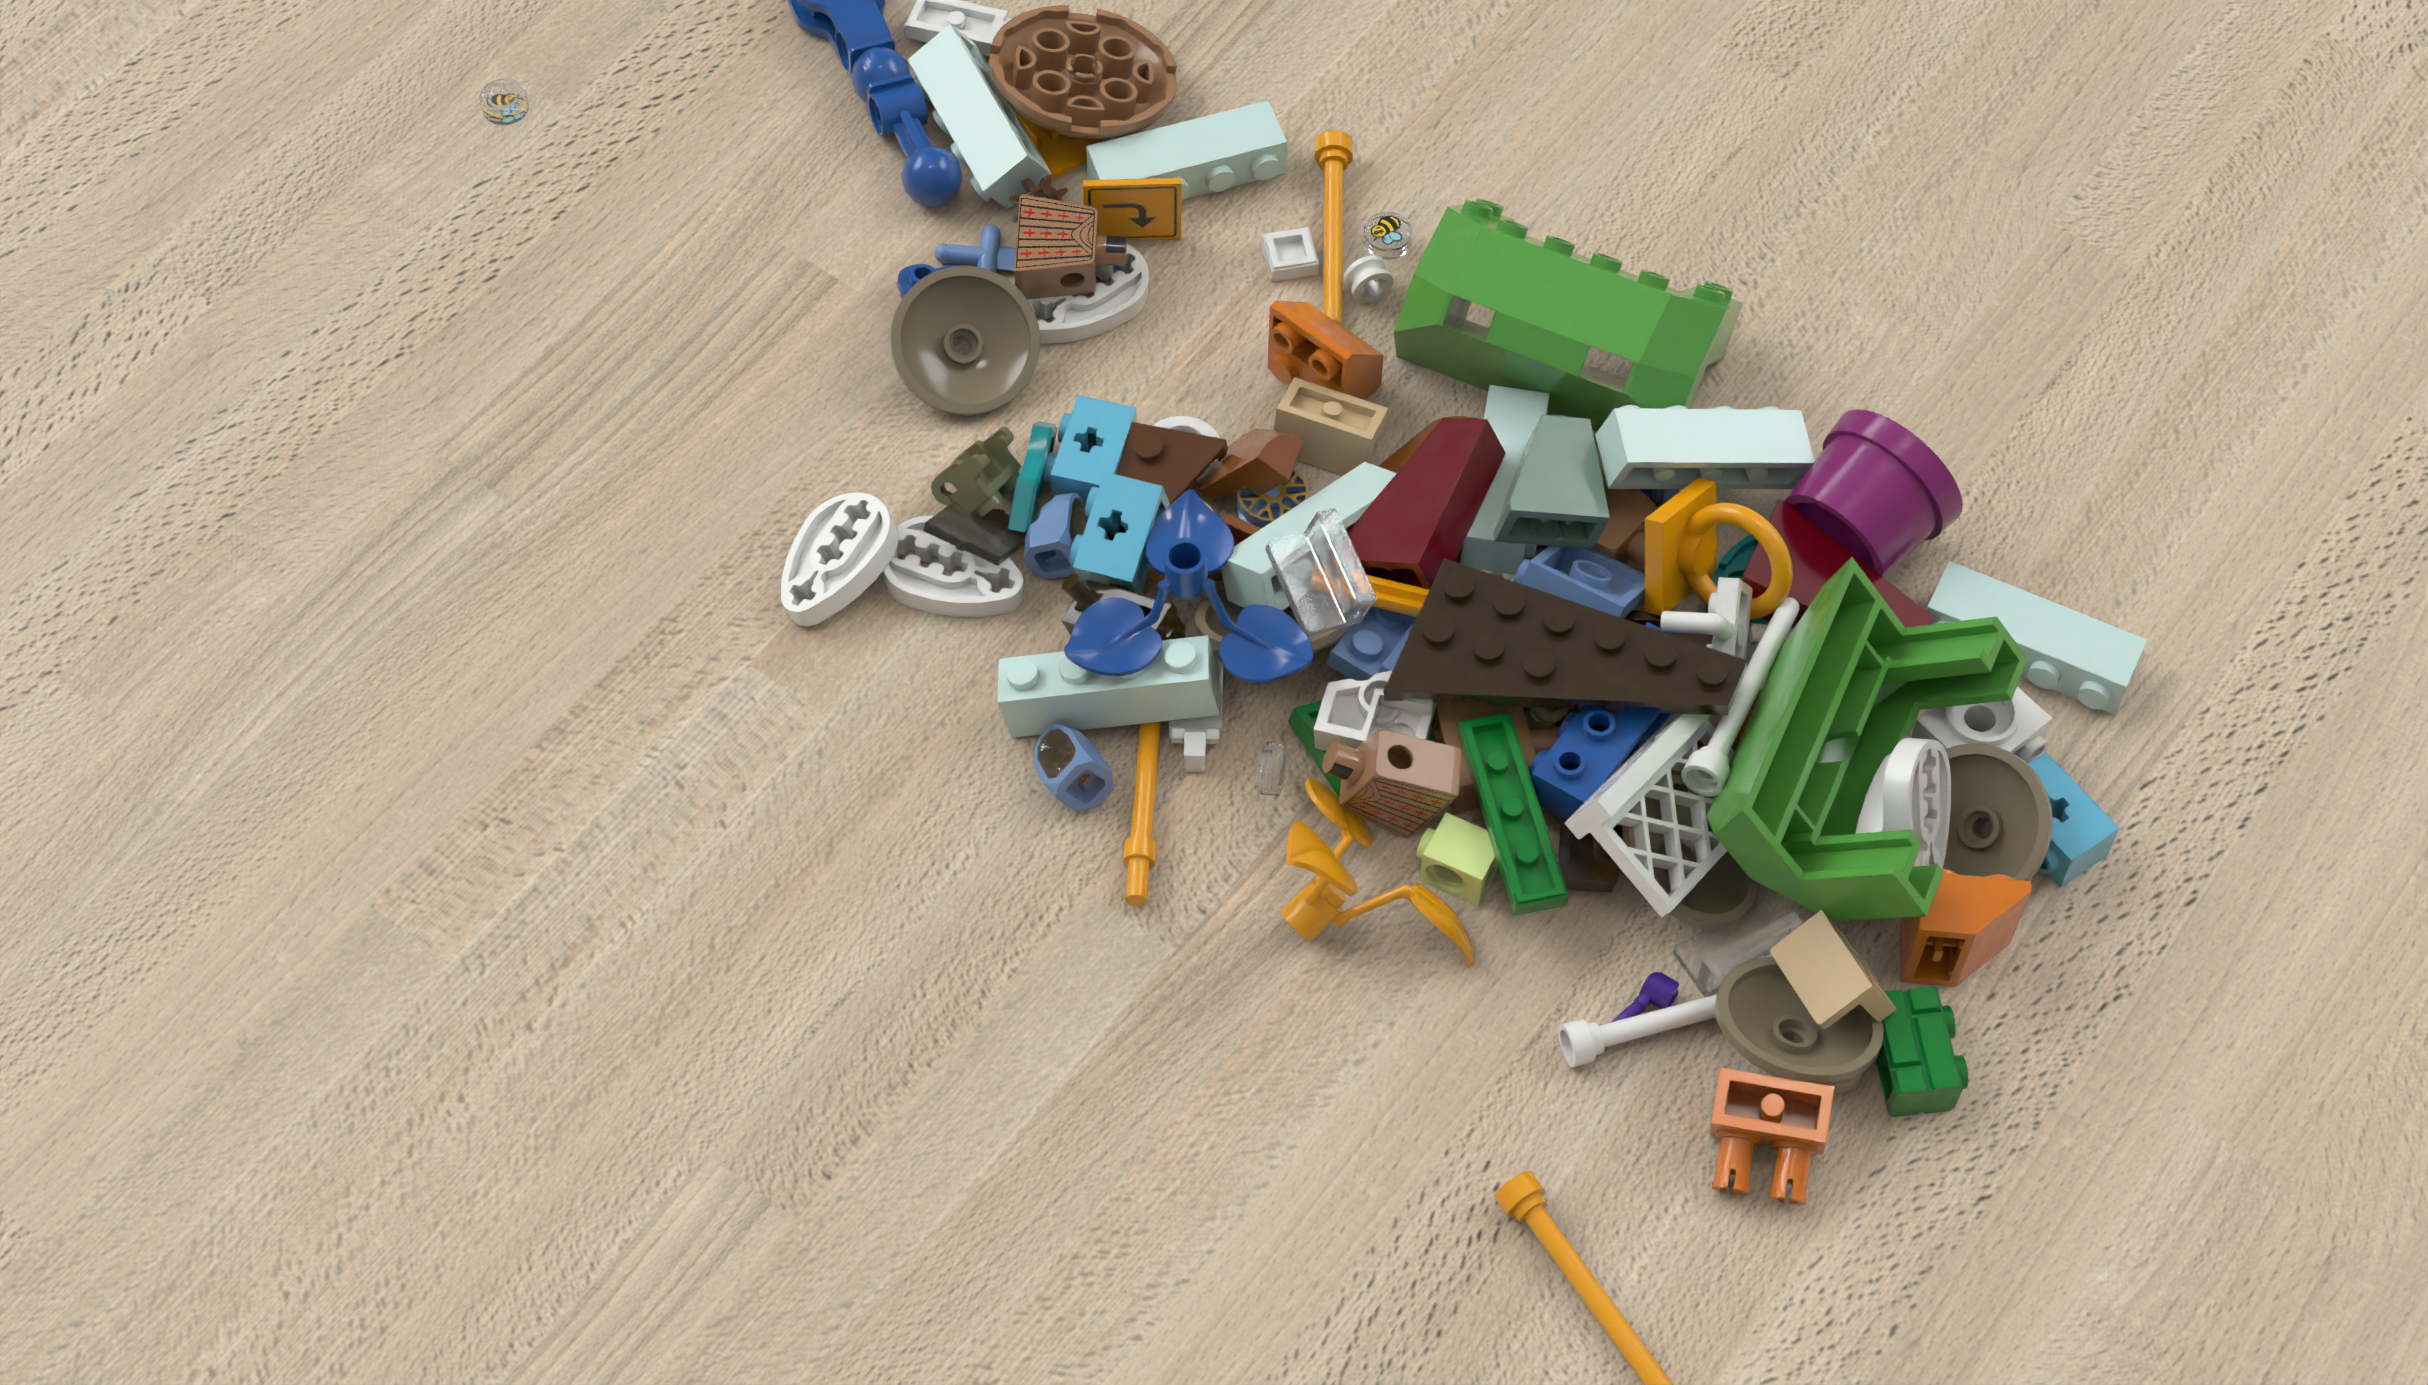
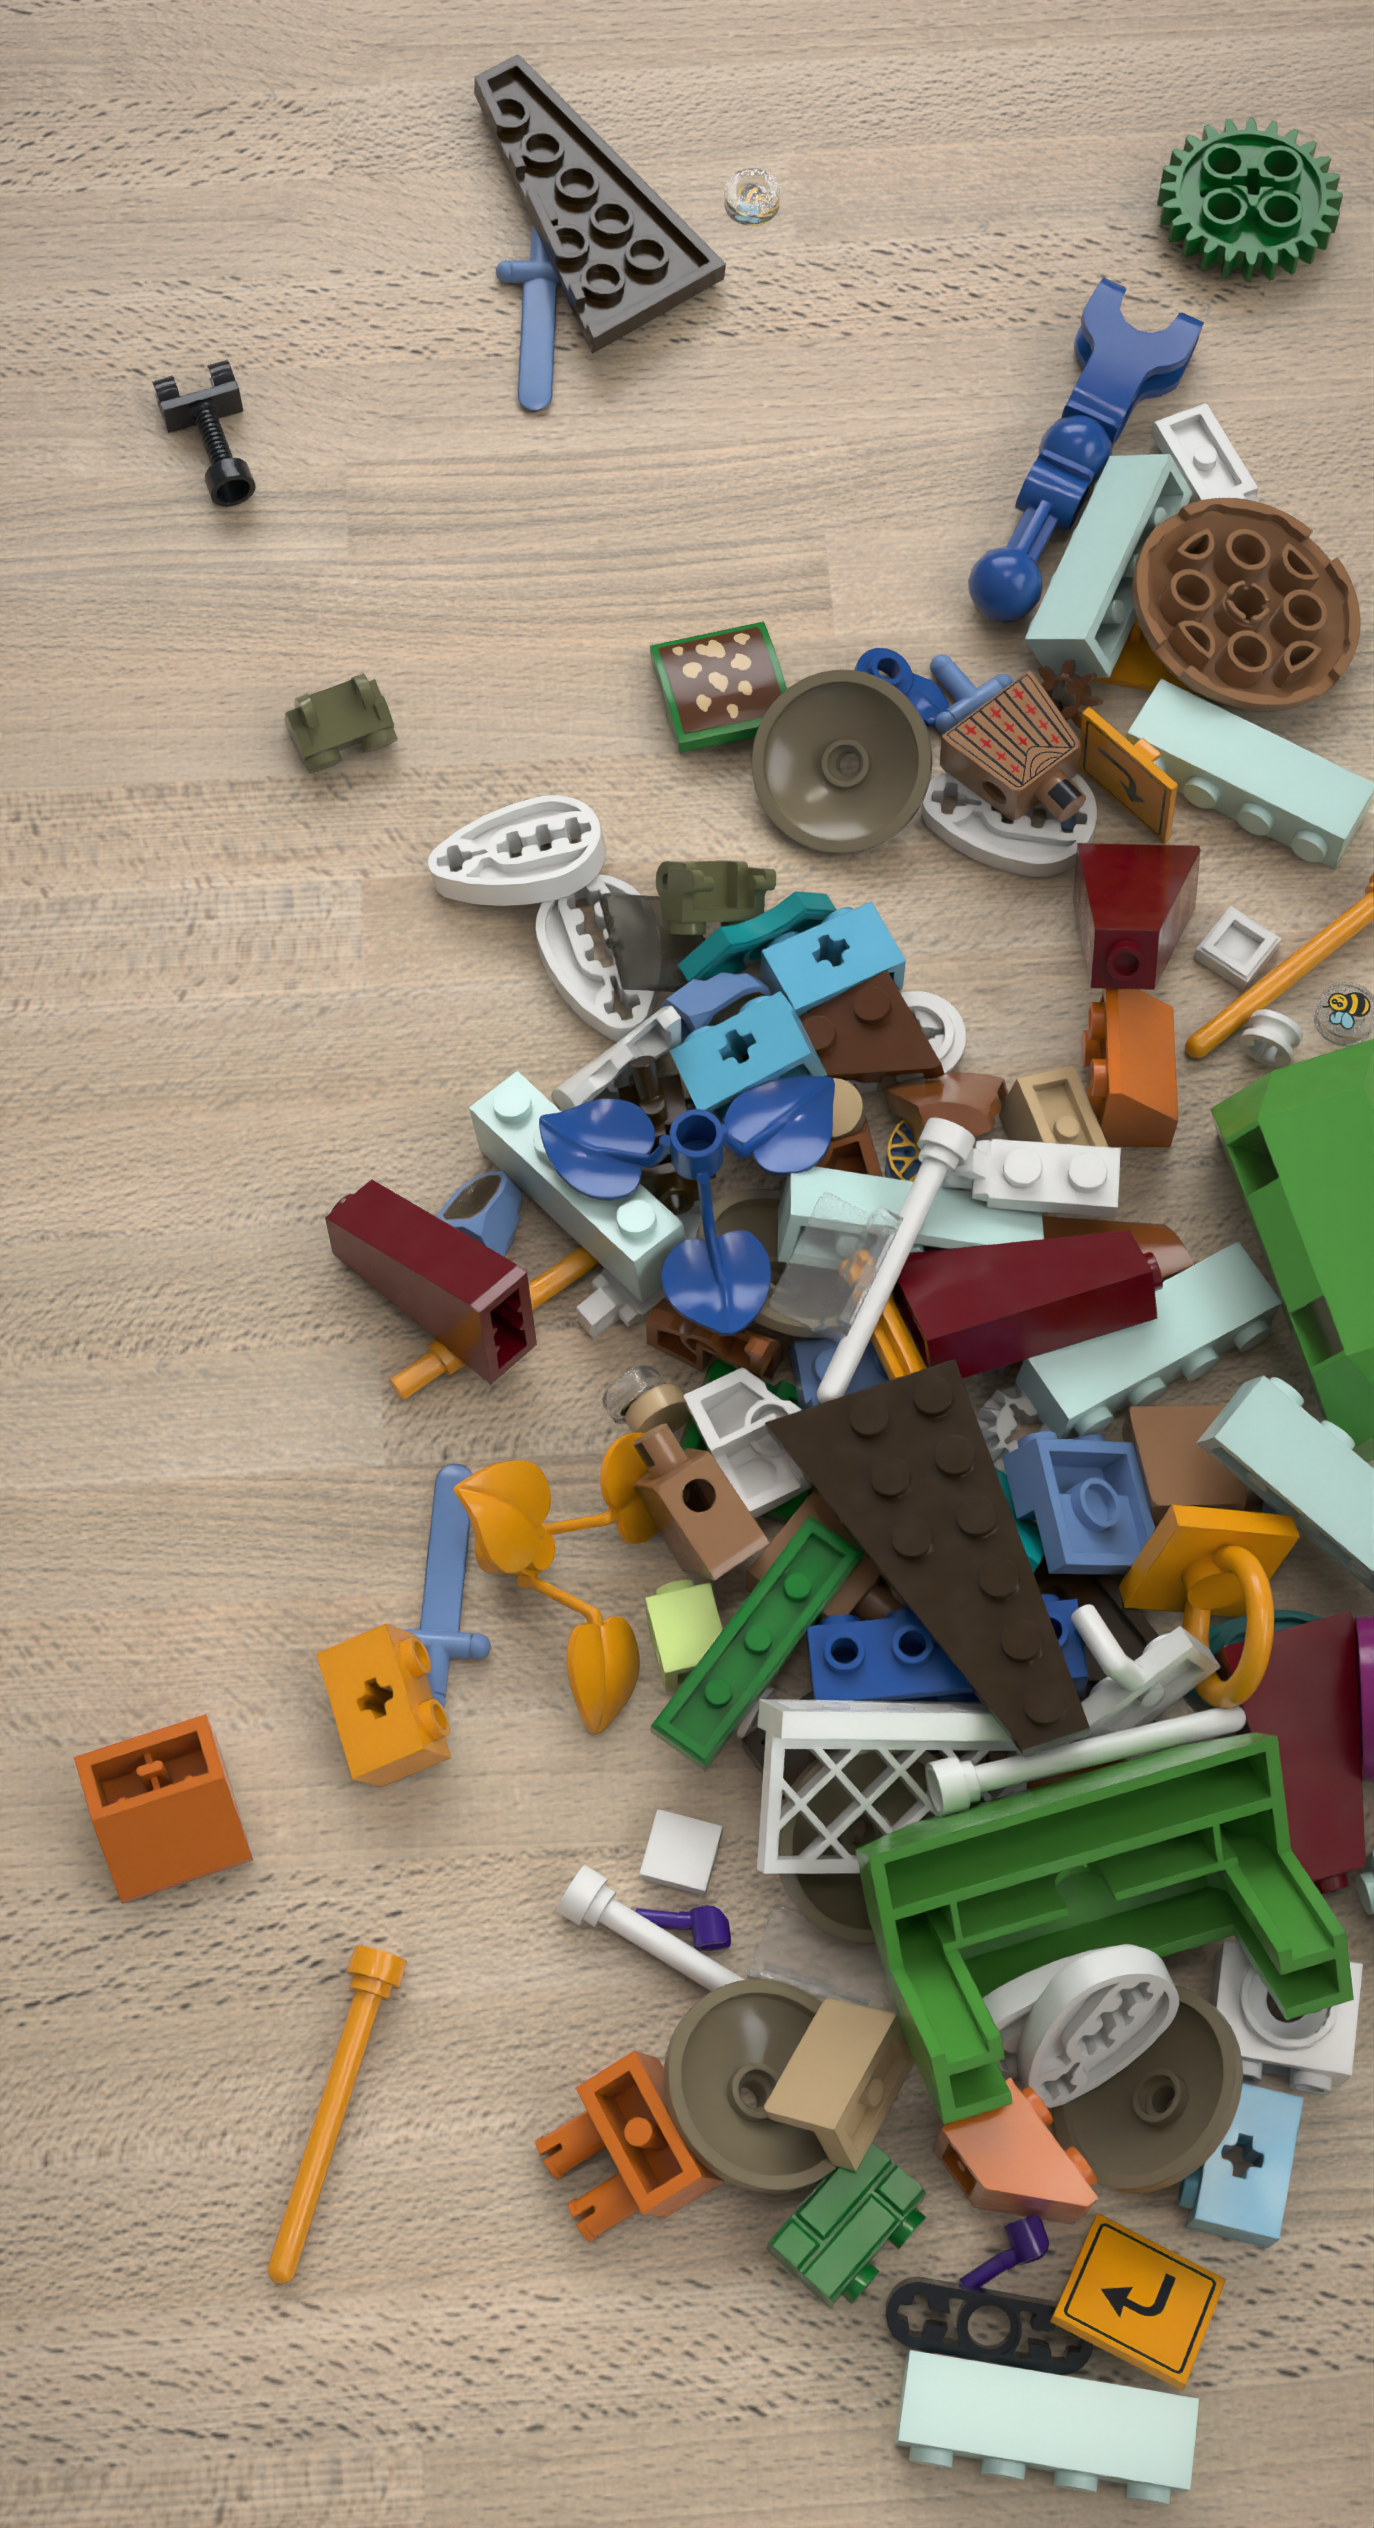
camera: 50 degrees right, 10 degrees up
(378, 517) = (228, 477): none -> black bar
(432, 252) = (536, 324): none -> medium blue sword
(440, 187) = (602, 226): none -> wing
(629, 584) = (338, 720): none -> olive piece
(833, 370) = (718, 684): none -> slope
(1044, 610) = (612, 1068): none -> white slope
(1091, 806) = (437, 1277): none -> dark red slope
(1227, 270) = (1132, 909): none -> dark red slope
(1266, 707) = (696, 1345): none -> dark orange slope
(1296, 765) = (657, 1407): none -> tan tile
(1298, 464) = (942, 1148): none -> white piece
(1303, 1234) = (163, 1808): none -> orange slope
(1319, 1056) = (377, 1677): none -> light orange brick
(1325, 1001) = (445, 1584): none -> medium blue sword
(1354, 443) = (1041, 1177): none -> white hinge
(1556, 488) = (1152, 1392): sand green slope -> none
(1595, 971) = (681, 1852): none -> white tile
(2003, 969) = (1027, 2244): none -> dark purple hand
(2016, 1028) = (933, 2331): none -> black beam
(2092, 934) = (1139, 2301): none -> light orange piece
(2124, 1040) = (1046, 2424): none -> light aqua brick

